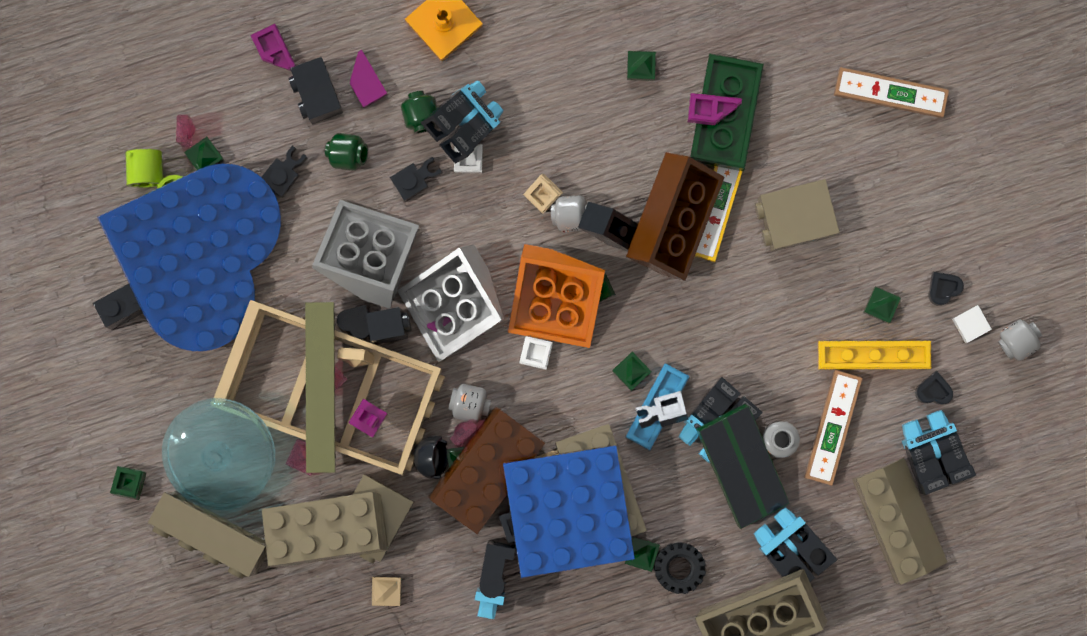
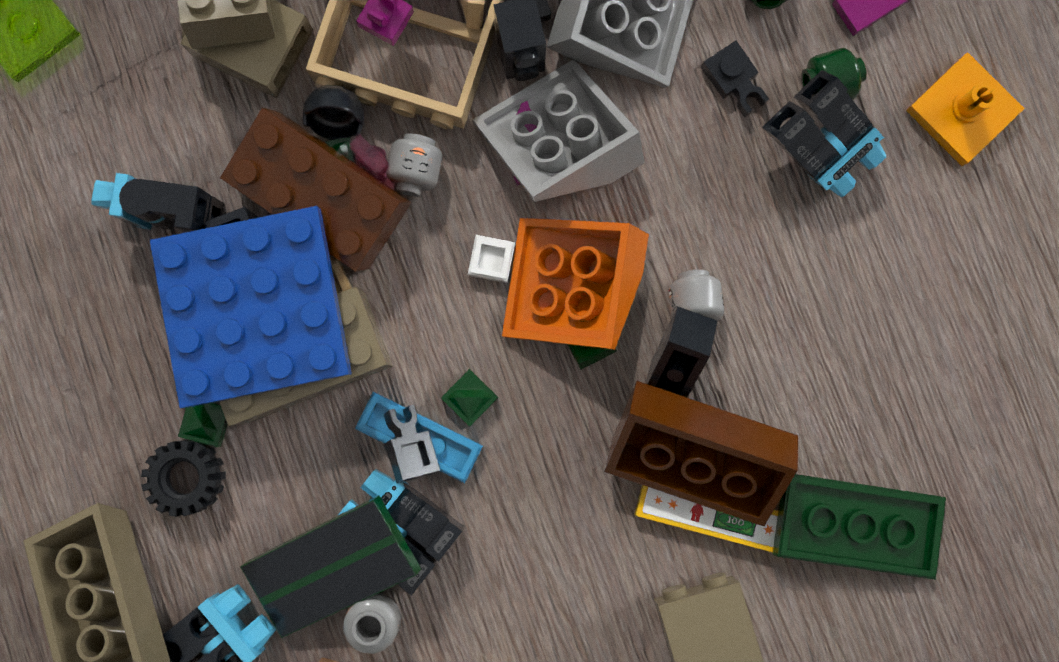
camera: 90 degrees right, 0 degrees up
(386, 591) = (147, 62): tan tile -> none
(472, 163) = (765, 154): white tile -> none
(543, 193) = (724, 259): tan tile -> none
(641, 65) = (920, 396): dark green tile -> none
(710, 108) = (865, 502): magenta tile -> none

